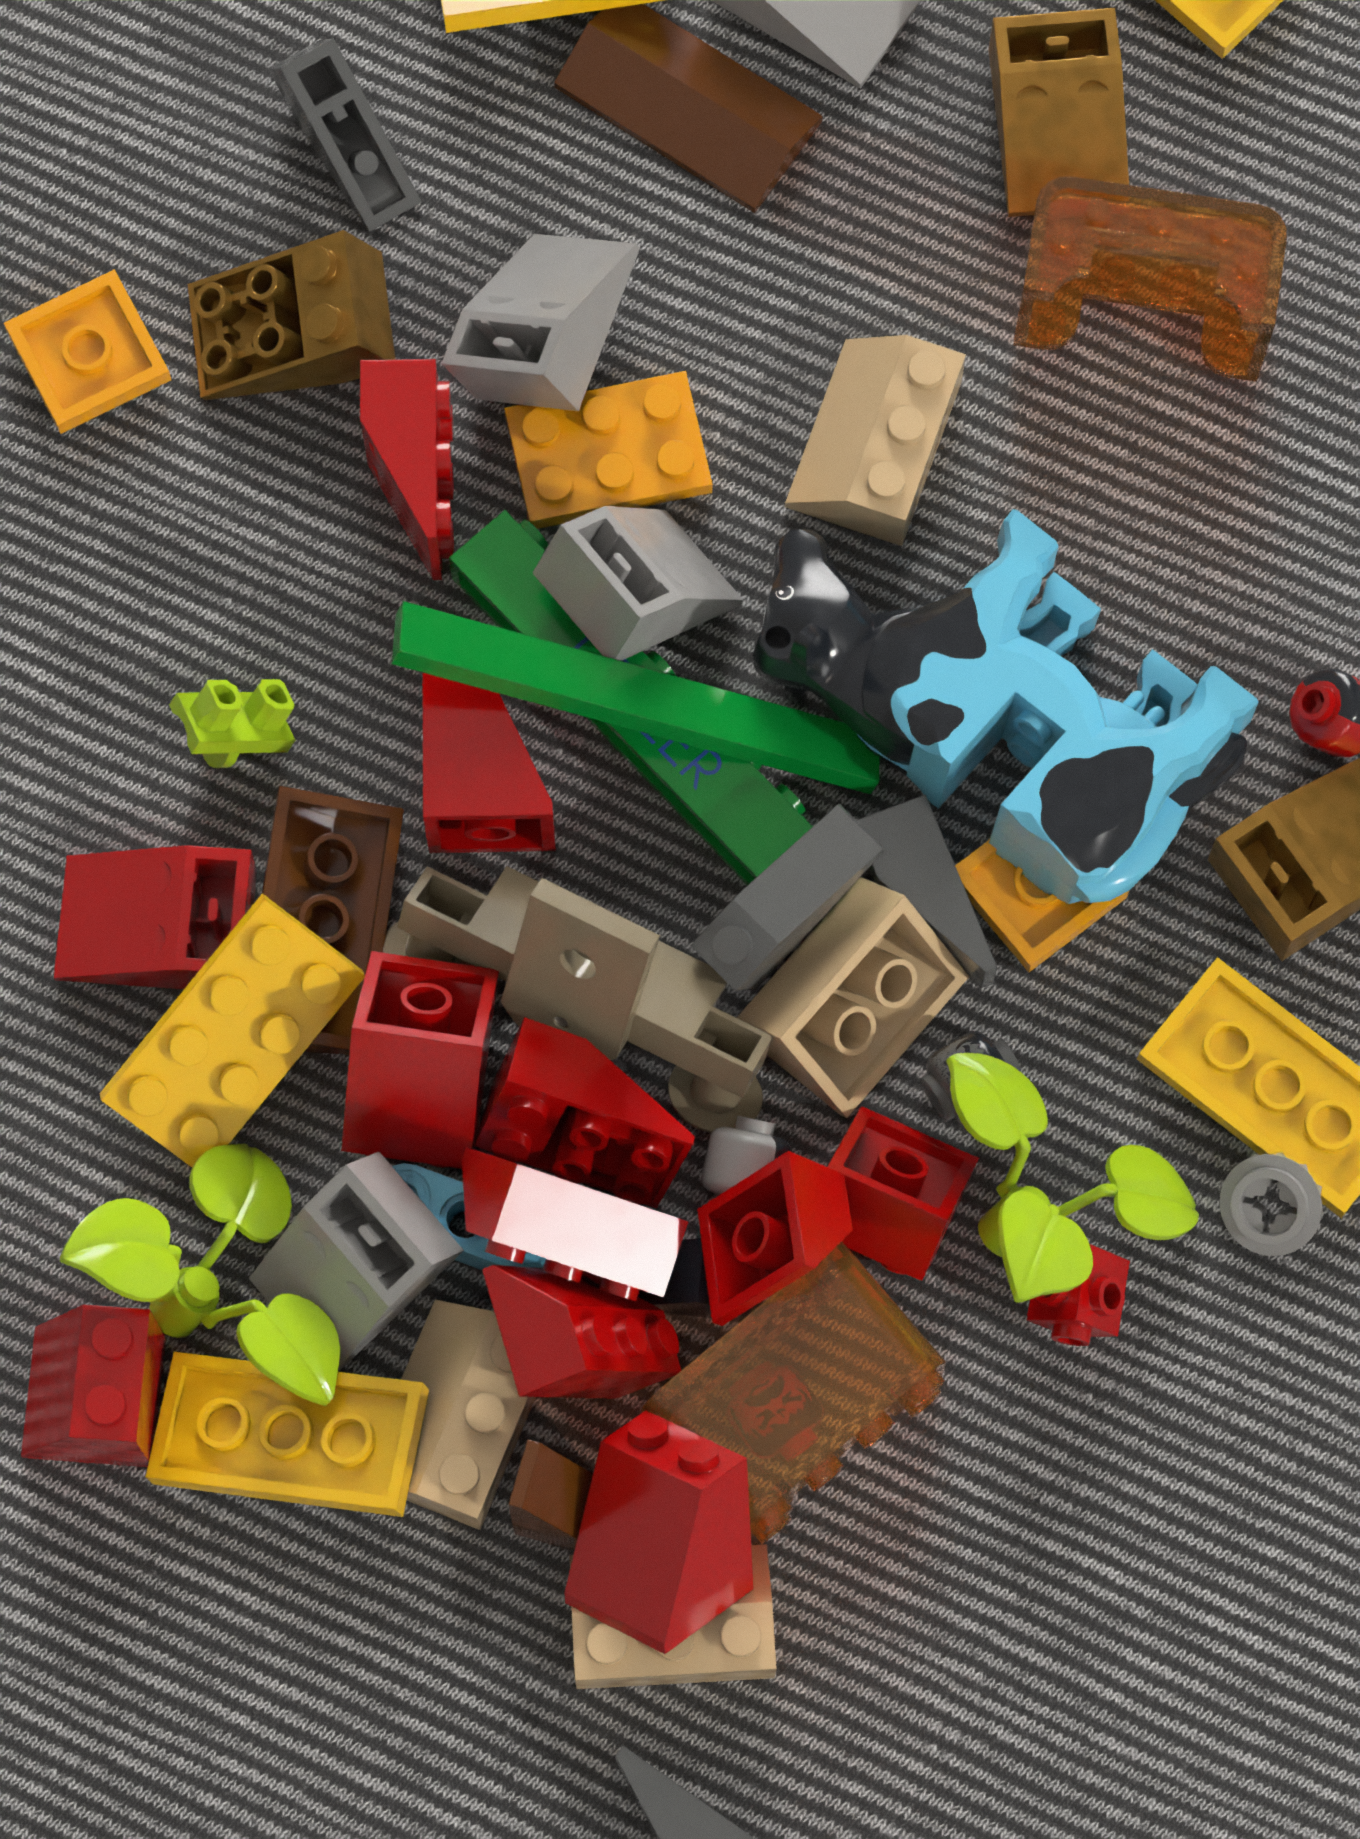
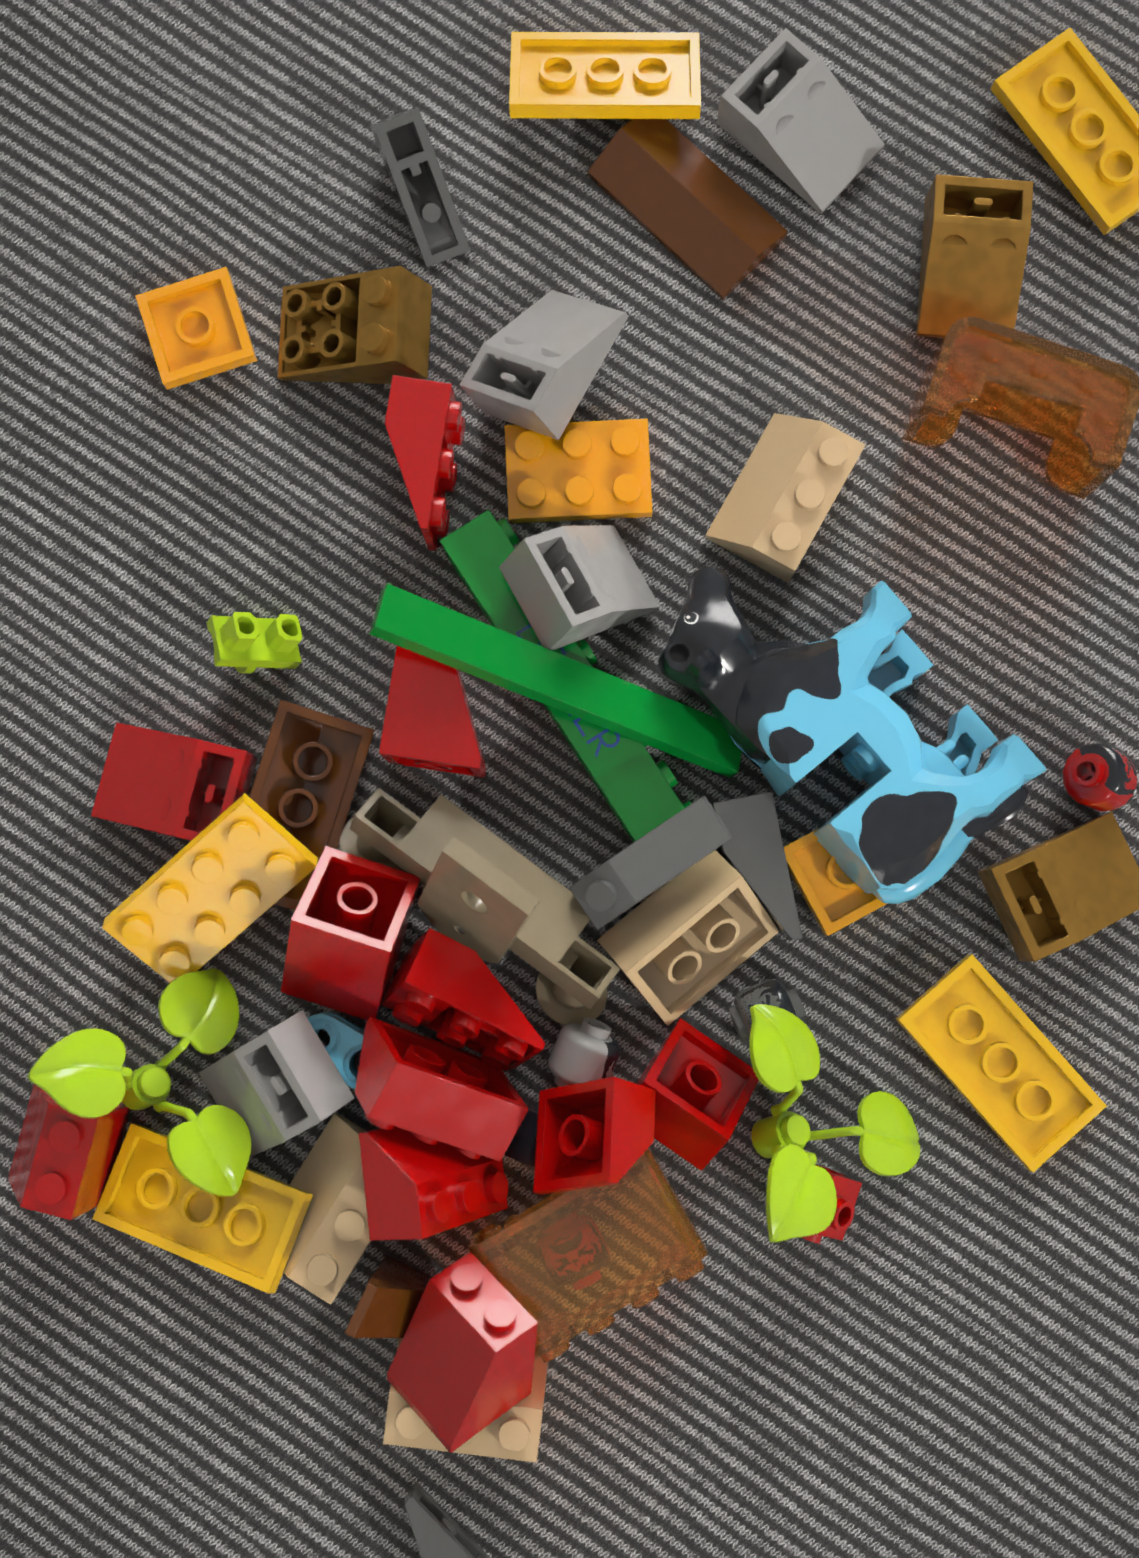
camera: 15 degrees right, 10 degrees up
(1248, 1220) = (993, 1172): light grey gear -> none

